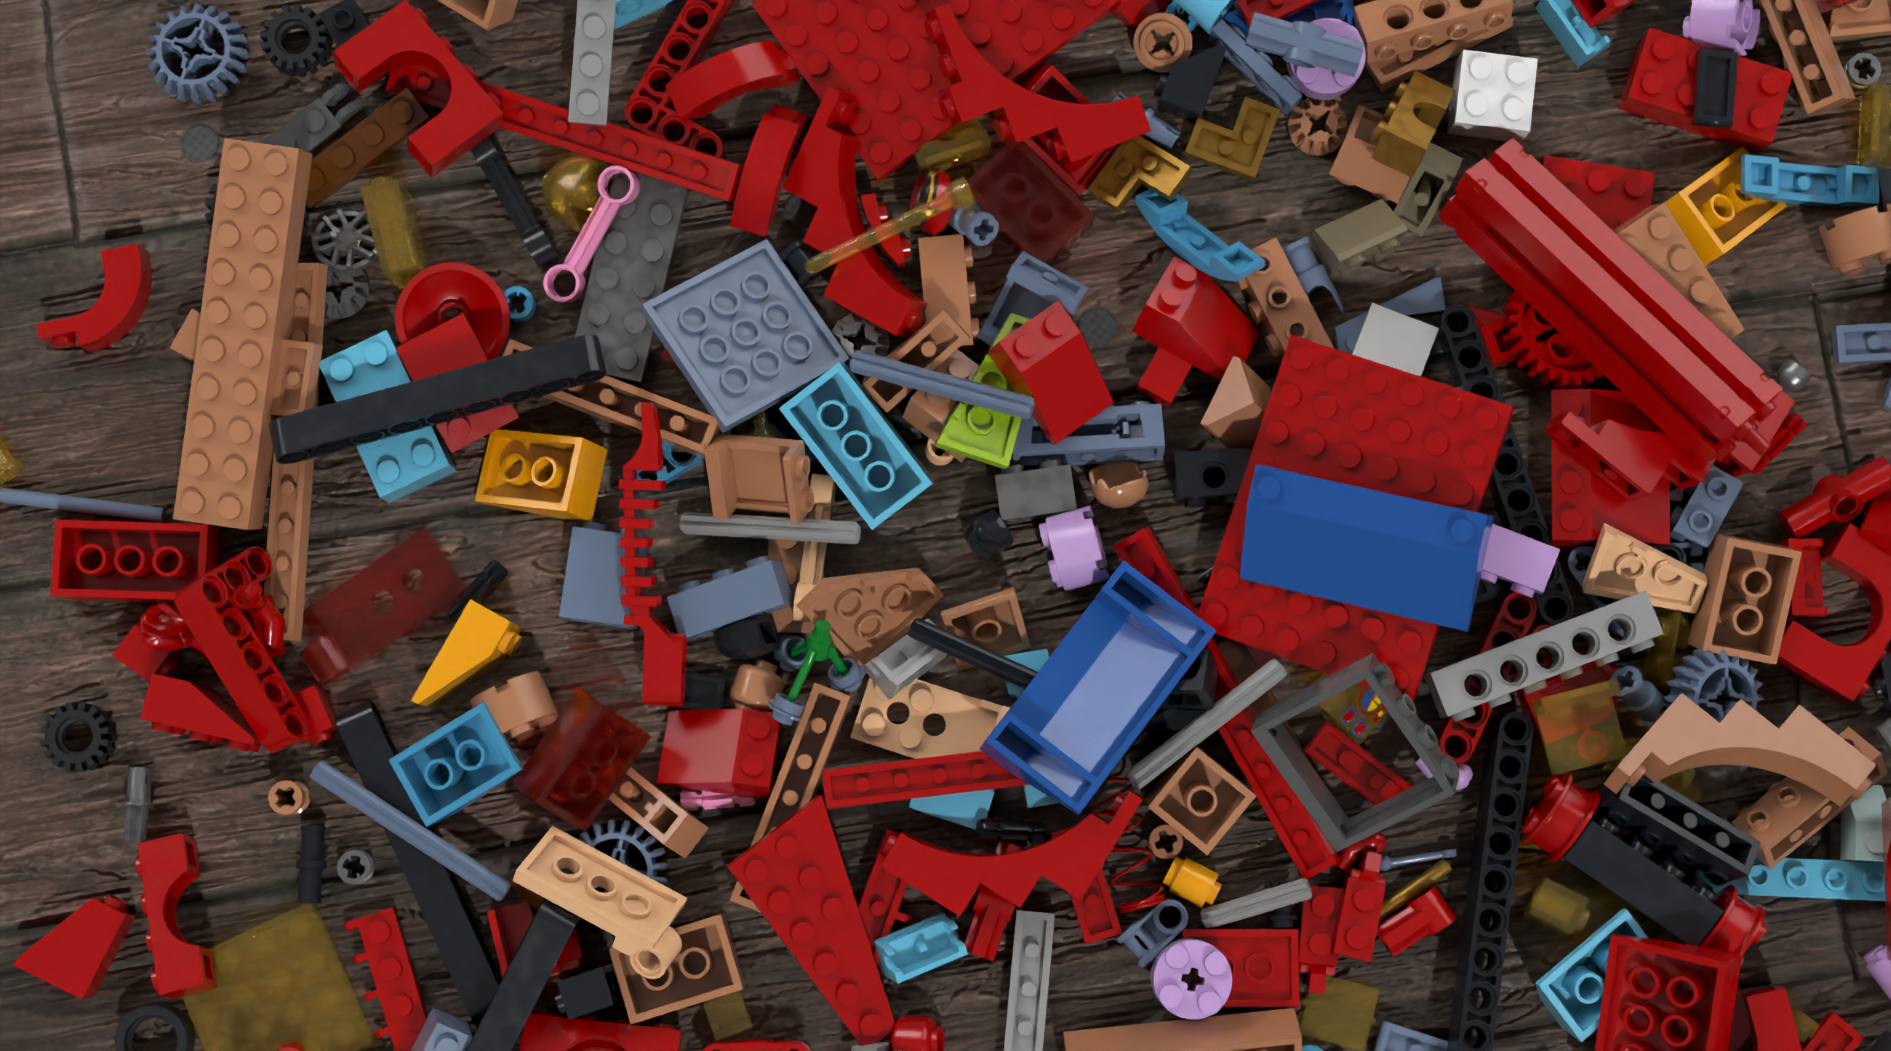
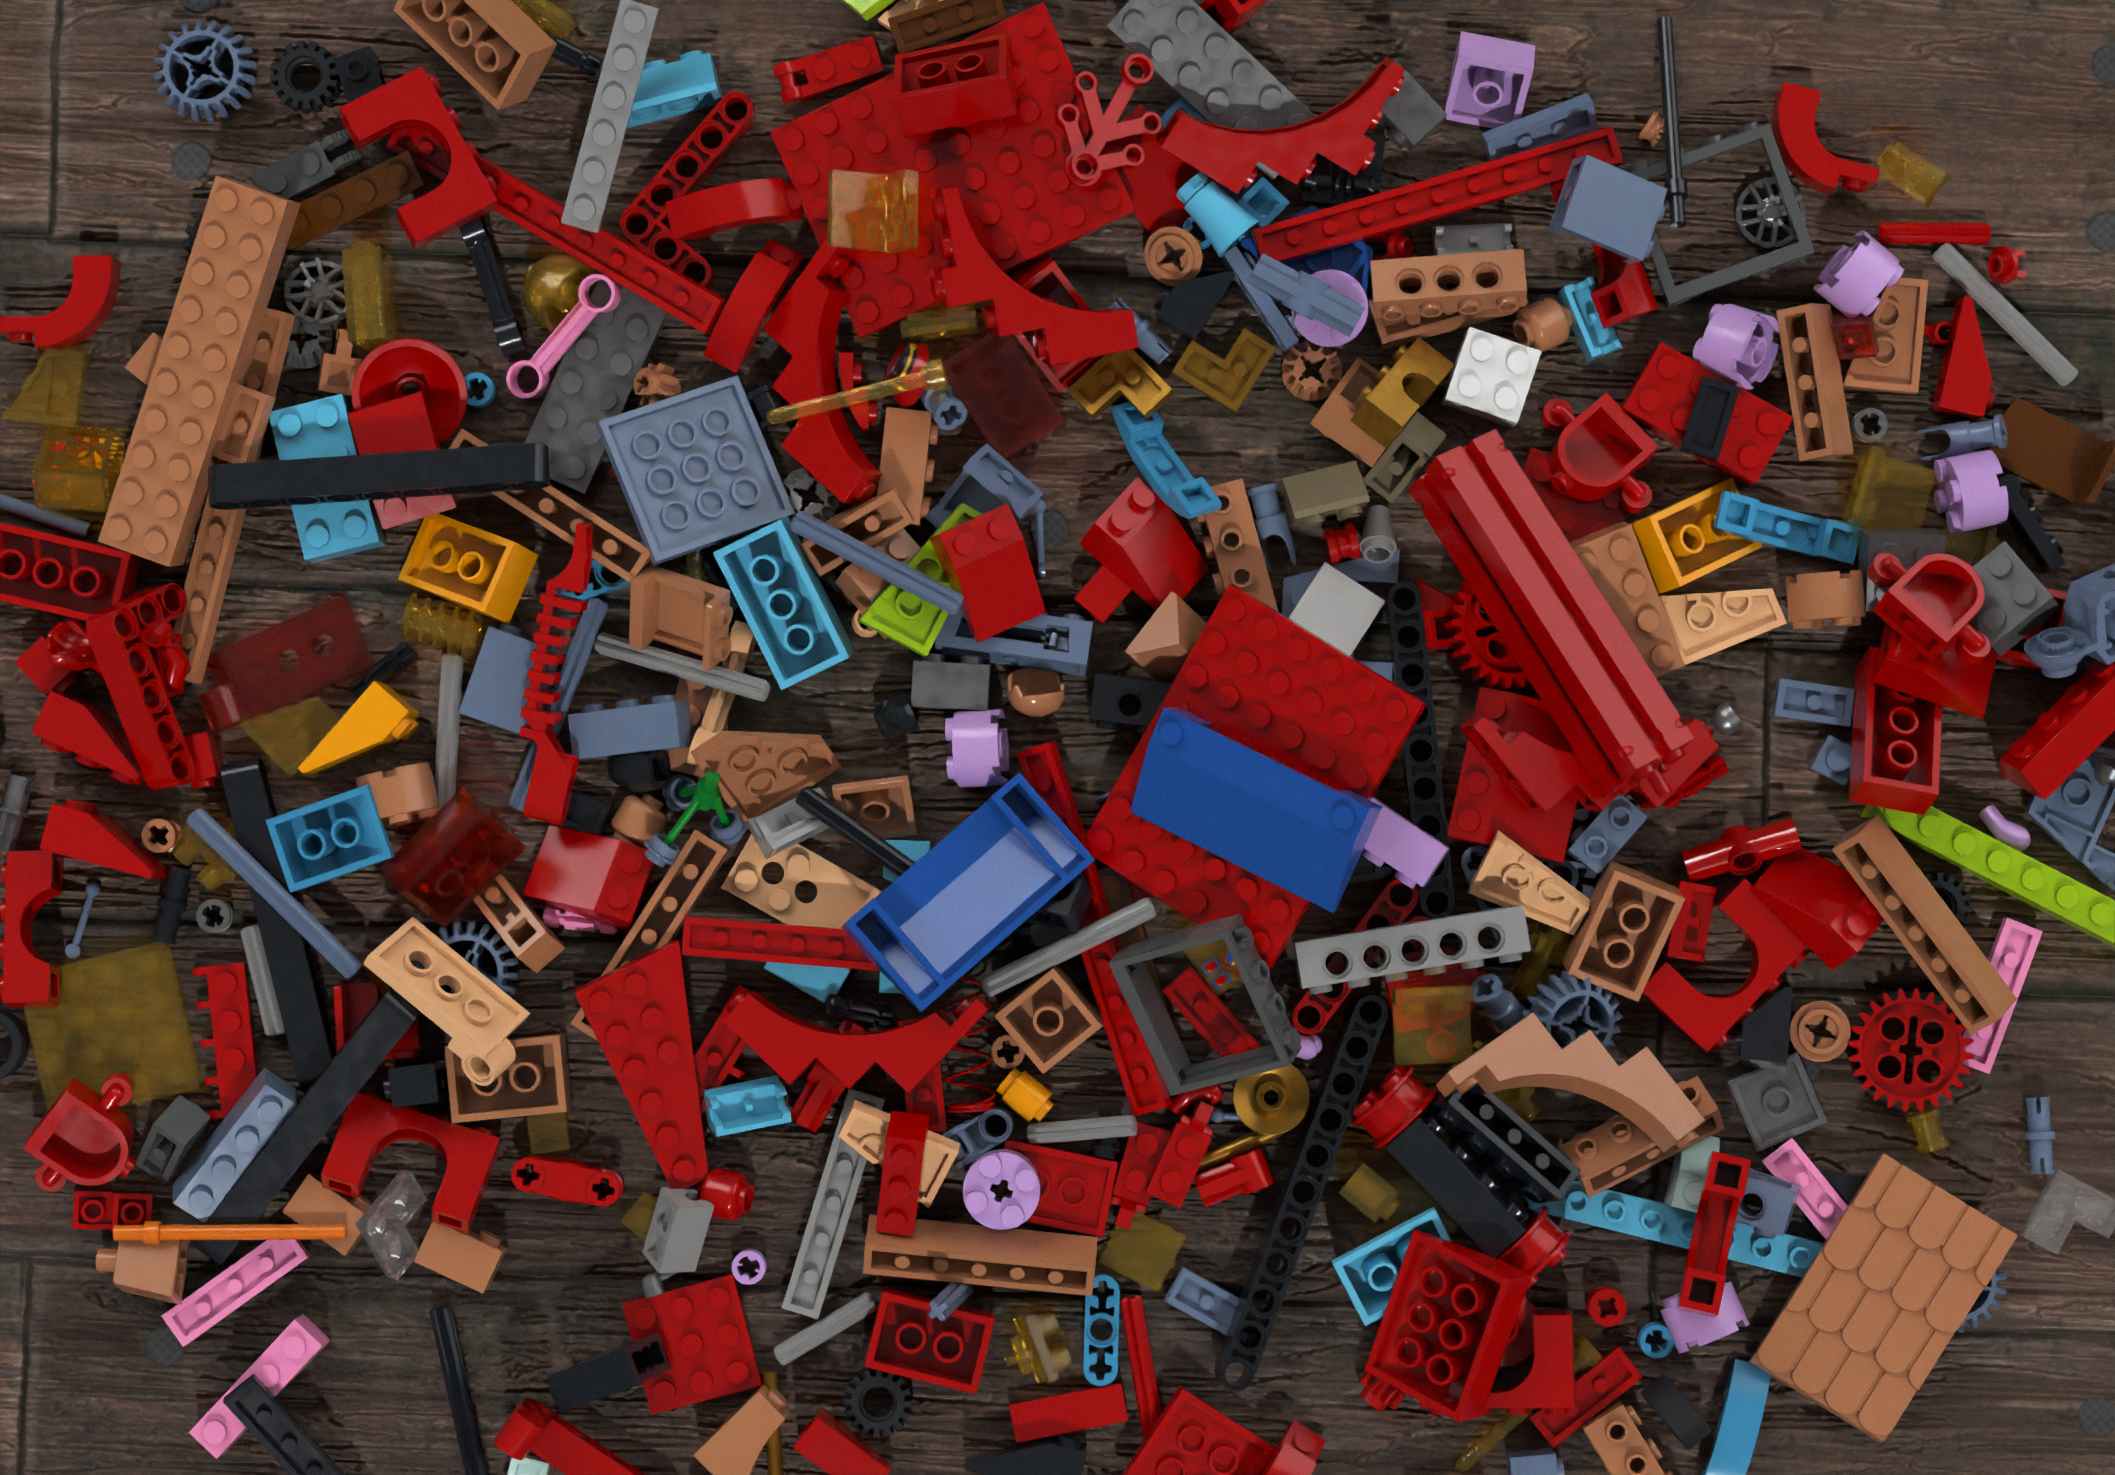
camera: 10 degrees right, 5 degrees up
(104, 387) = (52, 391): none -> clear yellow wing
(141, 455) = (78, 468): none -> clear yellow slope
(212, 810) = (94, 837): none -> red slope
(222, 929) = (74, 950): none -> sand blue hinge
(351, 819) = (217, 870): none -> clear yellow hips
(378, 309) = (338, 369): none -> nougat plate
(398, 670) = (292, 731): none -> clear yellow wing
(415, 922) = (262, 980): none -> light grey axle
(526, 538) = (441, 627): none -> clear yellow piece
(551, 633) = (448, 727): none -> light grey axle
(662, 556) = (571, 673): none -> sand blue axle
(689, 261) = (656, 384): none -> nougat gear
(869, 51) = (873, 210): none -> clear yellow bracket
(1084, 309) = (1039, 508): none -> sand blue hinge
(1089, 960) = (866, 1132): none -> light nougat wing
(1090, 982) = (902, 1173): none -> red brick
(1383, 282) = (1341, 543): none -> red wheel
(1418, 268) = (1378, 536): none -> light grey cone
(1455, 840) = (1277, 1118): none -> pearl gold dish
(1530, 35) = (1542, 324): none -> nougat head
(1612, 145) = (1598, 452): none -> red piece
(1767, 281) = (1720, 619): none -> light nougat wing
(1800, 972) = (1599, 1301): none -> red wheel
(1859, 1008) = (1646, 1347): none -> dark azure bush

